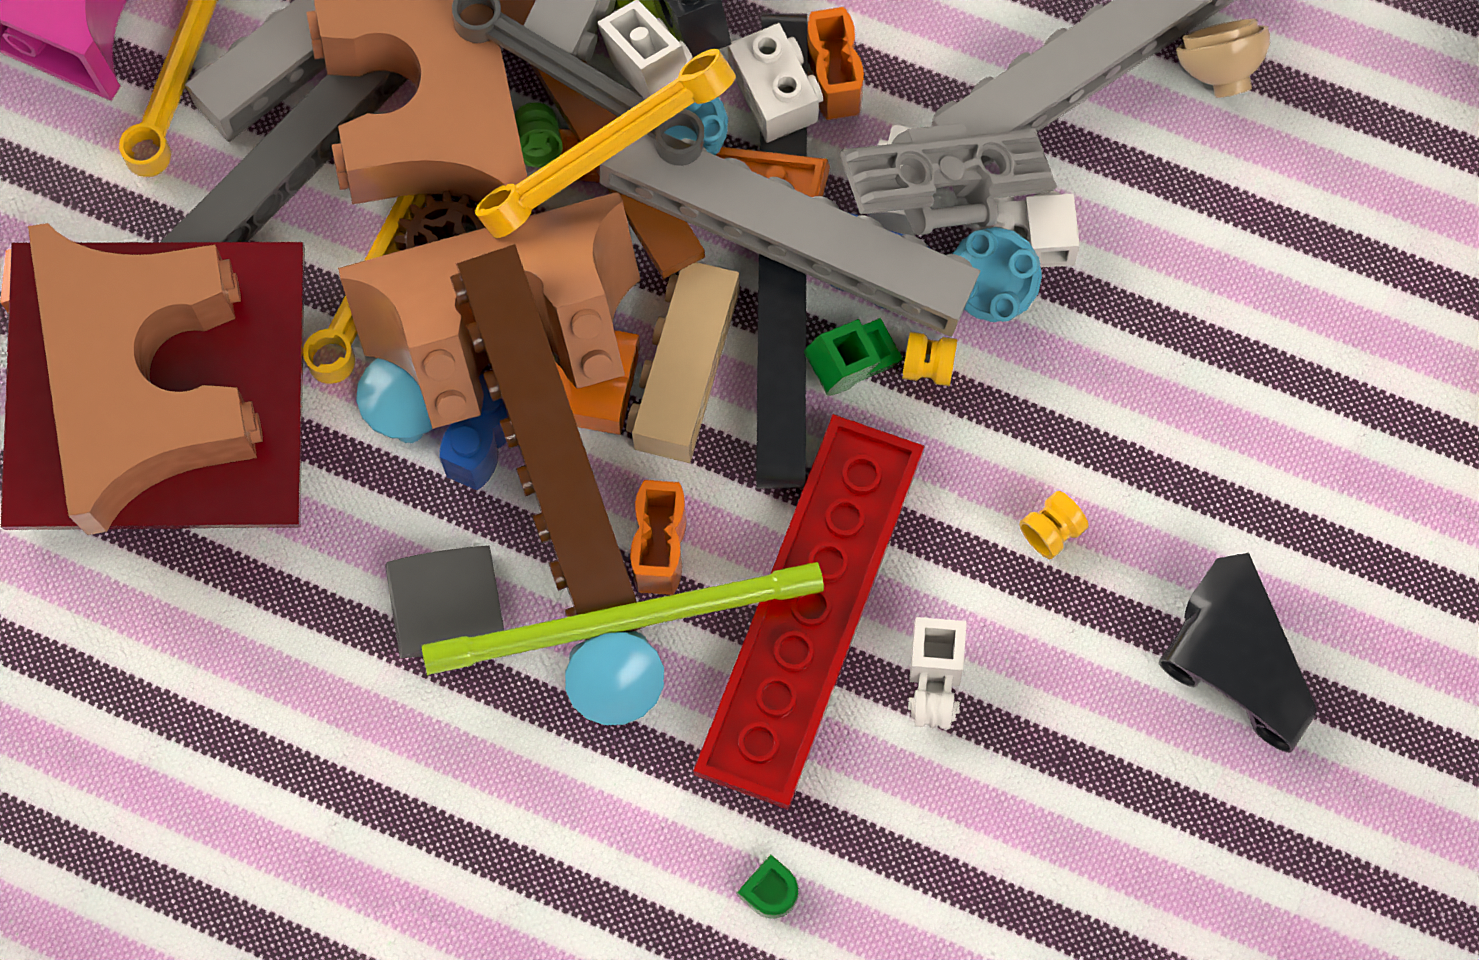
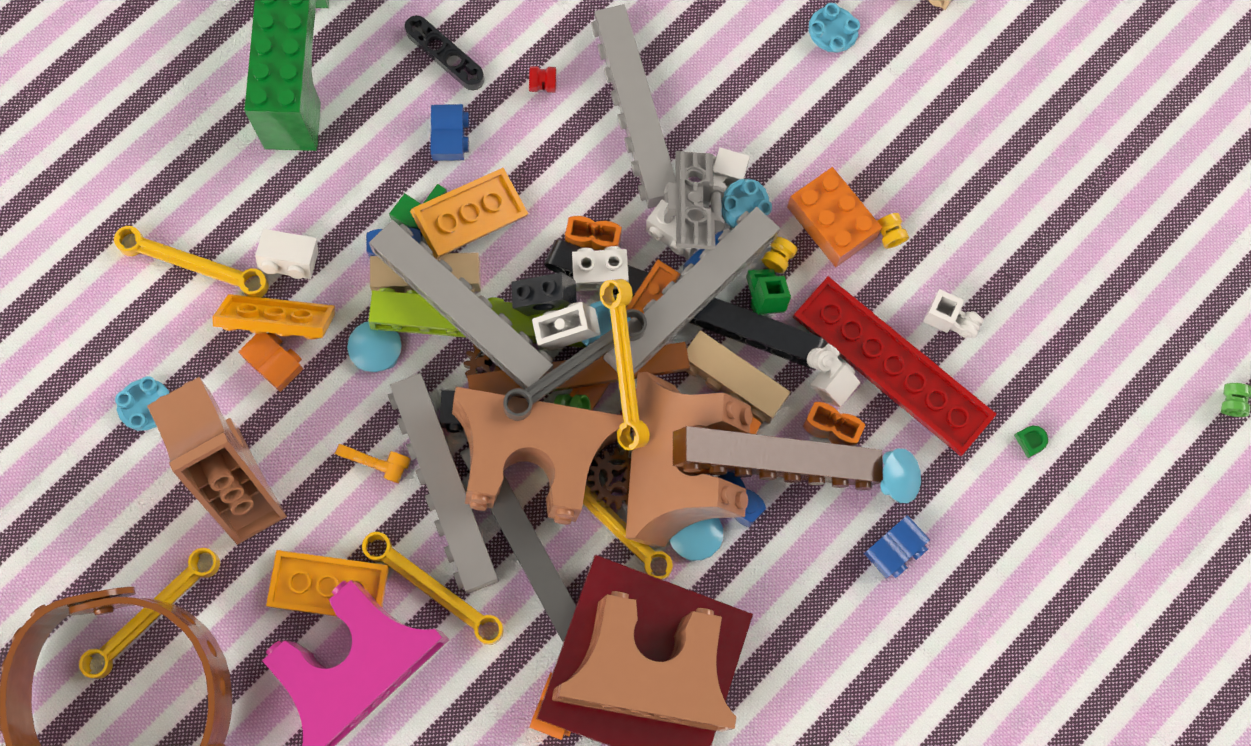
camera: 75 degrees left, 5 degrees up
(443, 597) = (825, 550): dark grey slope -> none
(466, 650) = (871, 543): lime piece -> none
(489, 714) = (897, 548): none -> blue brick
(743, 516) = (836, 378): none -> white brick
(1034, 420) = (834, 217): none -> orange brick
(1225, 54) = (665, 42): tan piece -> none
(1242, 652) = (990, 169): black panel -> none
(1389, 311) = (833, 28): none -> medium azure dish

